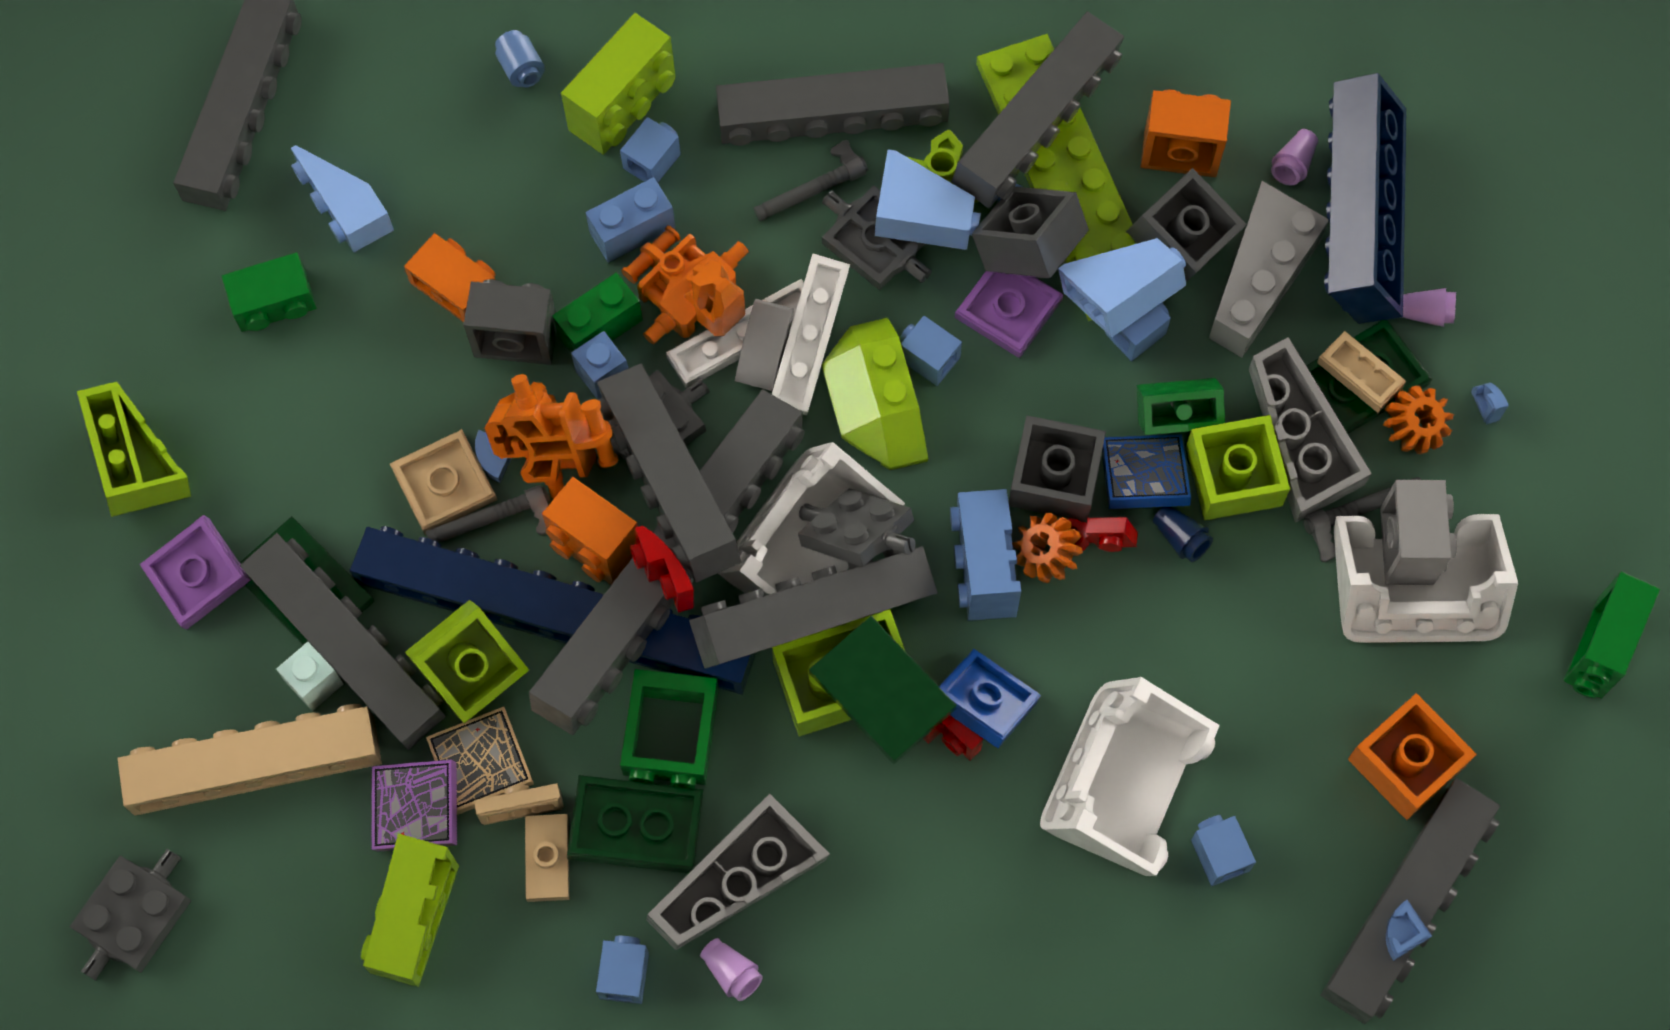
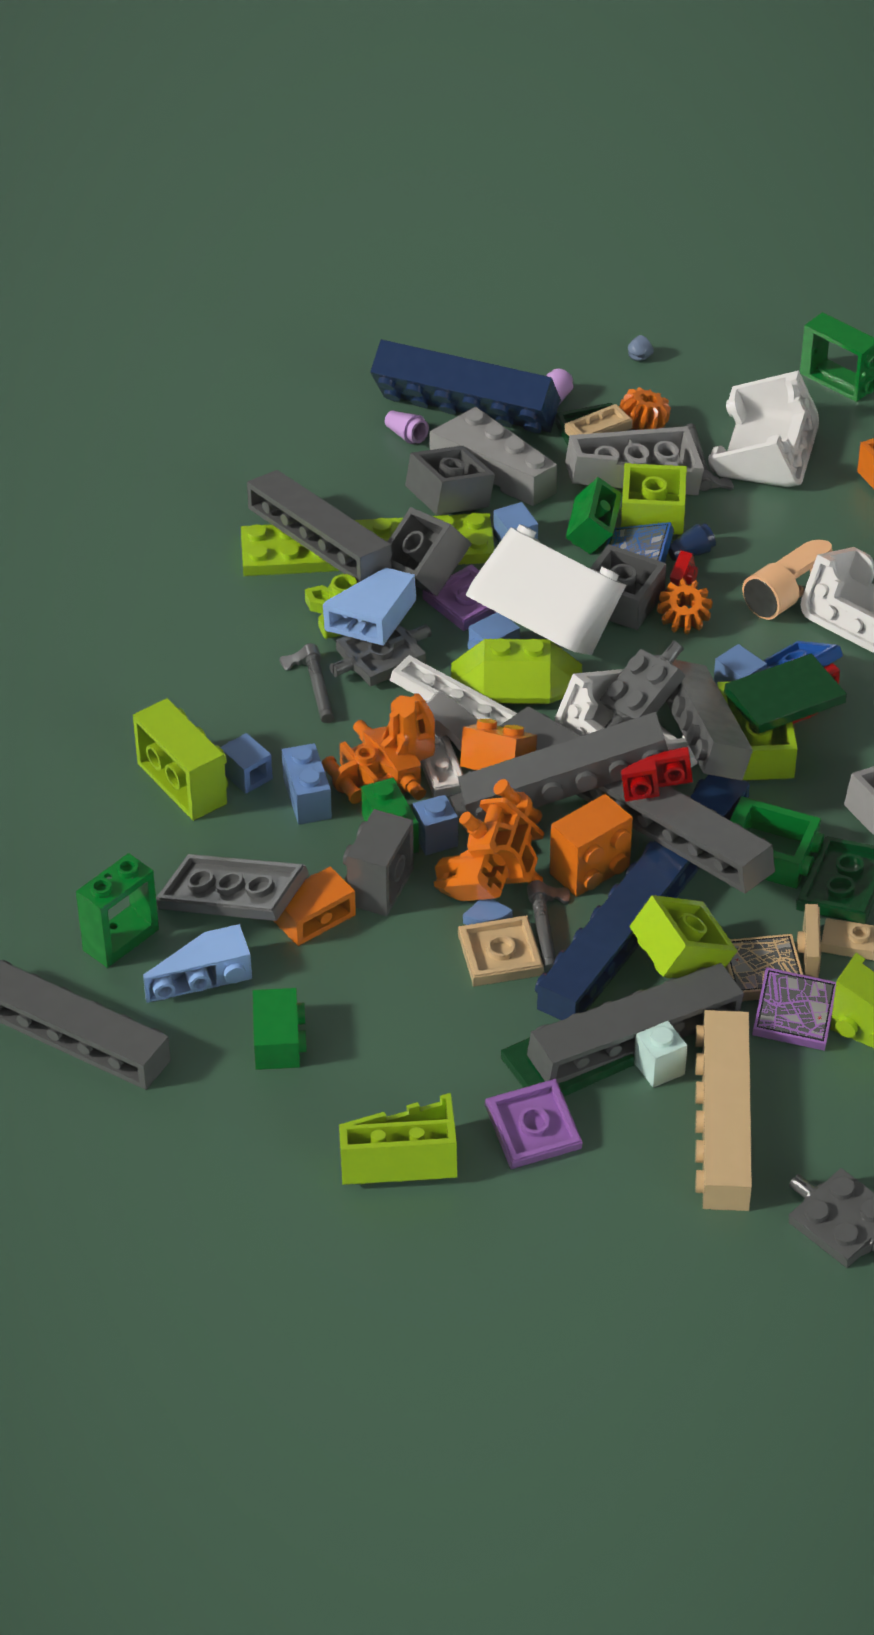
camera: 75 degrees left, 25 degrees down
(360, 90) = (114, 938): none -> green window
(448, 192) = (232, 887): none -> dark grey tile
(519, 59) = (116, 829): medium blue brick -> none
(720, 398) = (490, 744): none -> orange brick
(832, 104) = (250, 652): dark grey brick -> none
(952, 637) = (736, 664): none -> medium blue brick
(973, 377) = (547, 591): none -> white windscreen
(985, 555) = (698, 630): medium blue wedge -> none
(1123, 283) = (487, 511): light blue slope -> none
(1124, 651) = (775, 585): none -> light nougat piece
(1185, 133) = (370, 463): orange brick -> none
(1417, 532) = (736, 416): light grey brick -> none
(1489, 402) = (639, 376): medium blue tile -> none
(1557, 387) = (640, 348): none -> sand blue hinge

